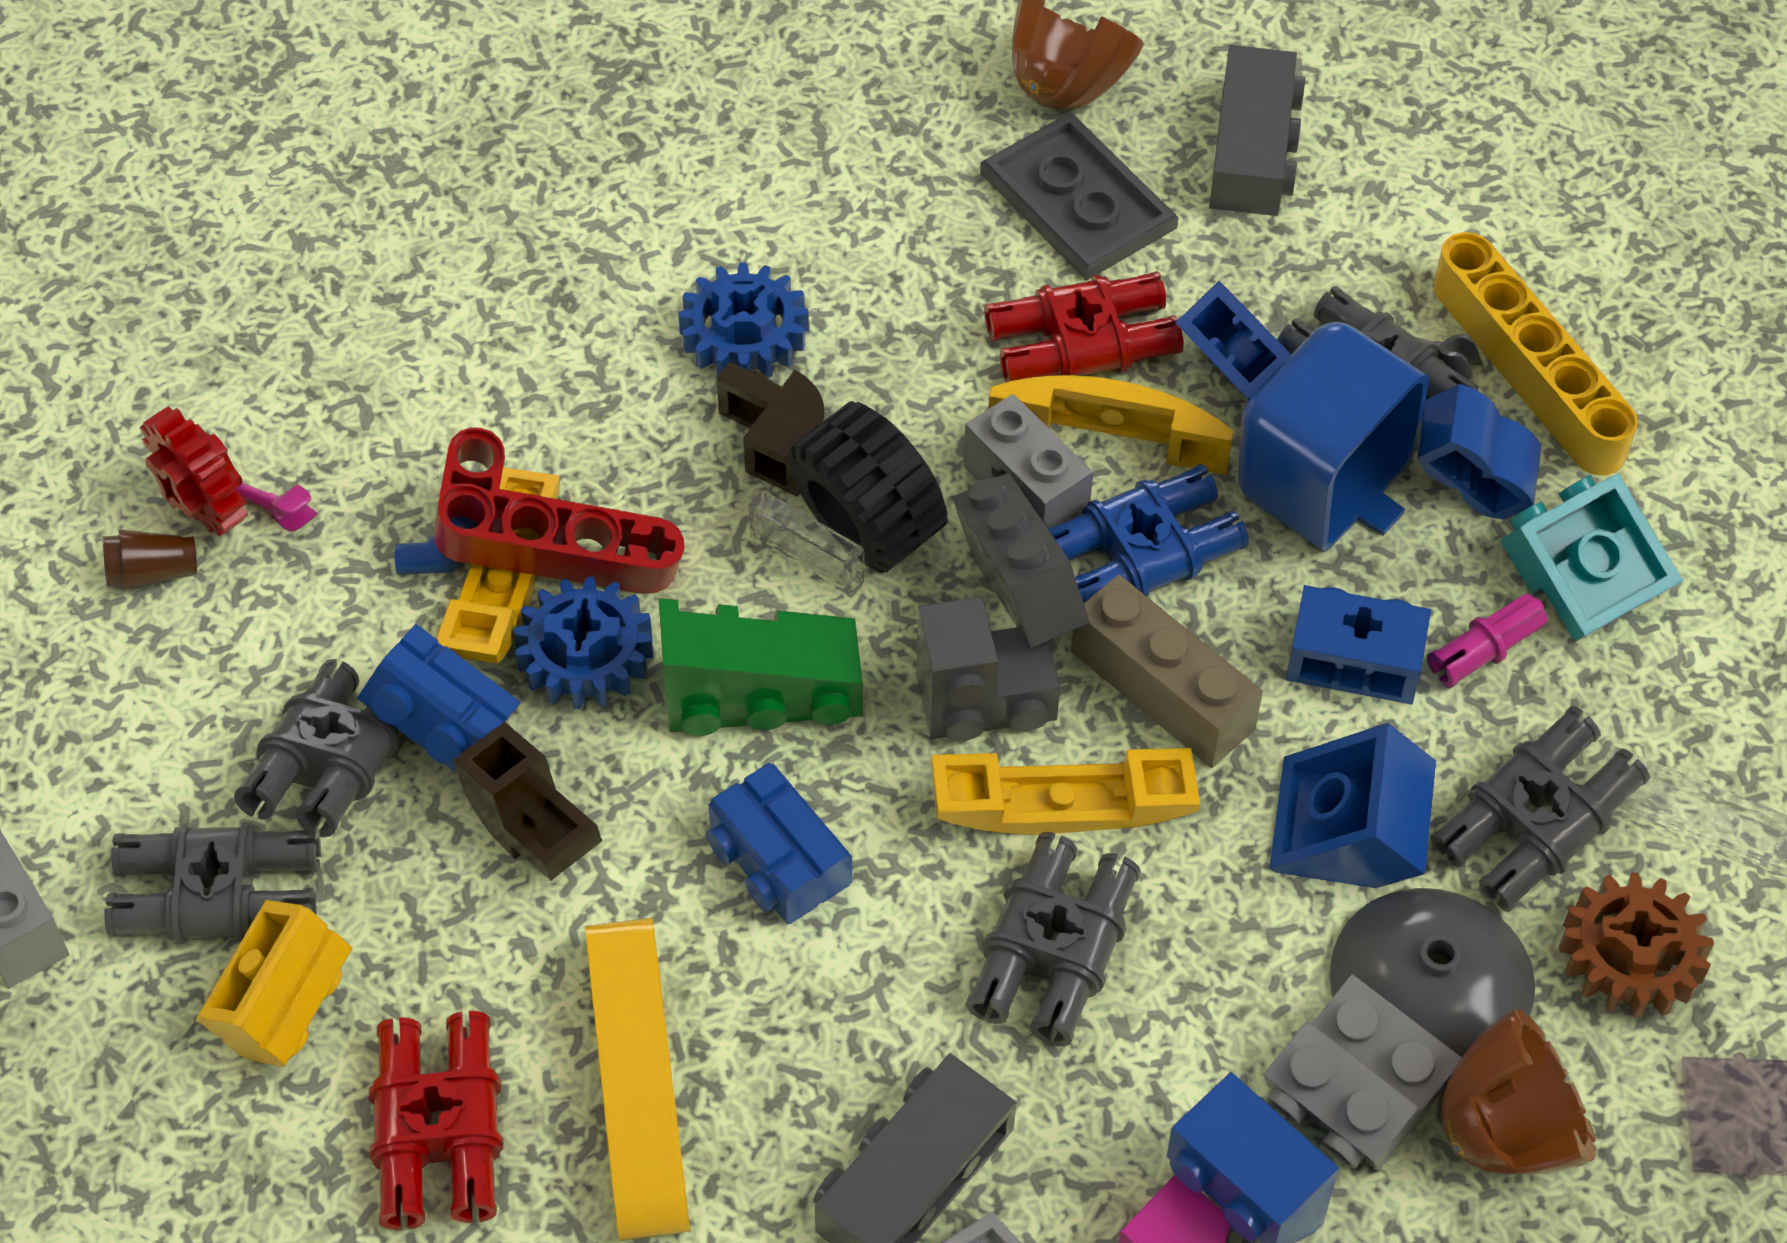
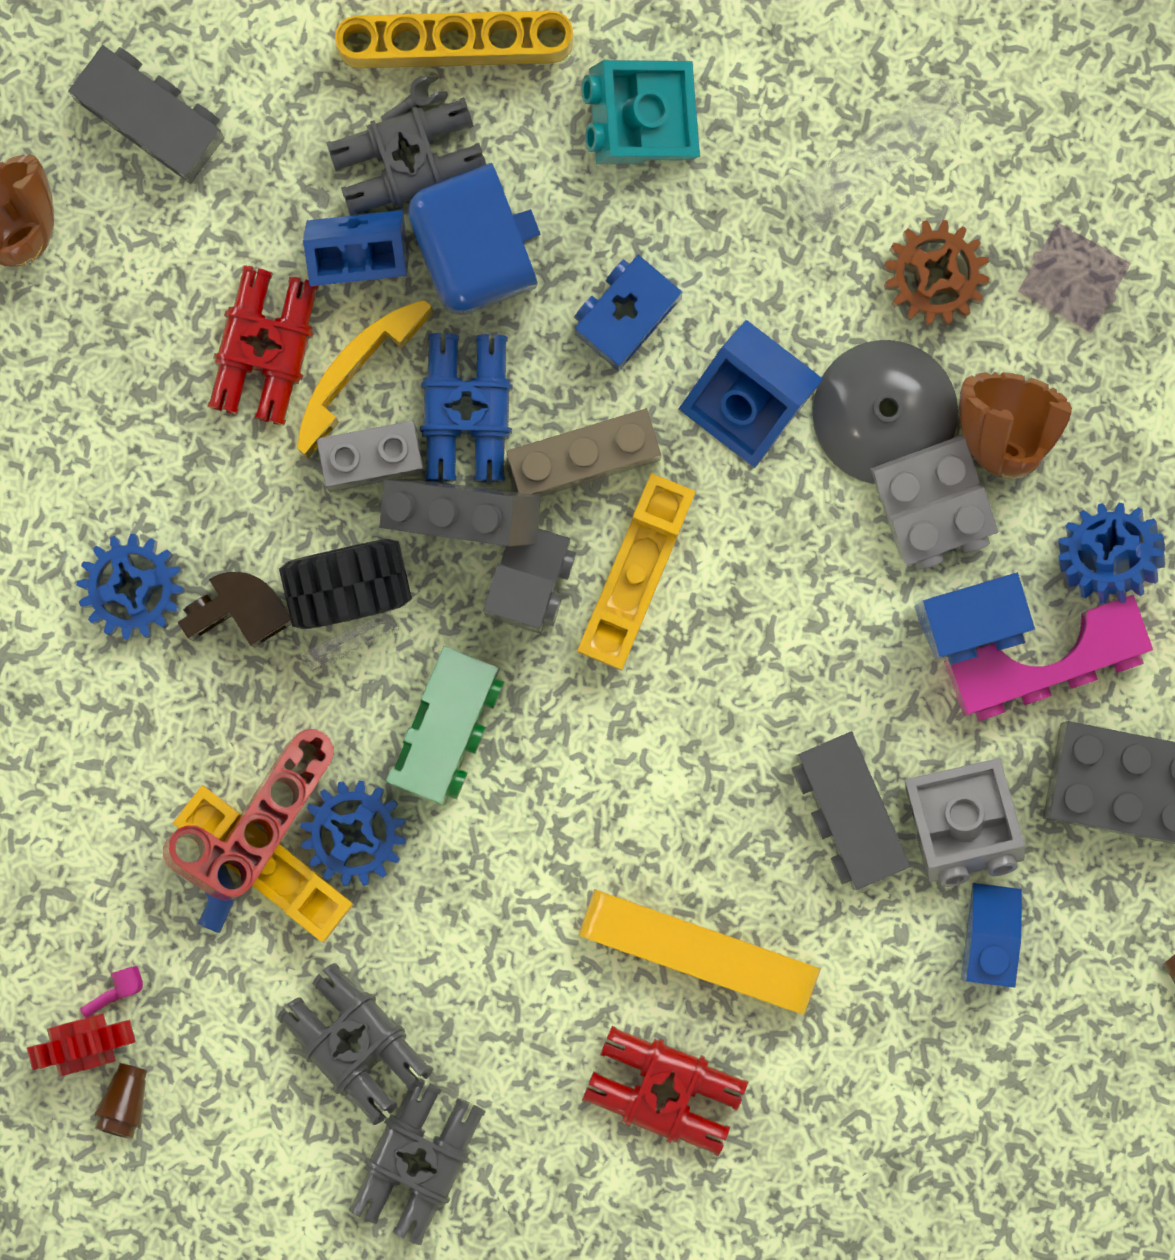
camera: 60 degrees left, 30 degrees up
(275, 983) = (523, 1154): yellow brick -> none
(435, 697) = (365, 958): blue brick -> none
(520, 805) = (474, 933): dark brown brick -> none
(778, 844) = (580, 781): blue brick -> none
(1078, 954) = (743, 610): dark grey pin -> none
(1079, 195) = (131, 275): dark grey tile -> none
(1479, 452) = (527, 137): blue brick -> none
(1488, 639) = (666, 220): dark pink axle -> none
(1543, 837) = (836, 285): dark grey pin -> none

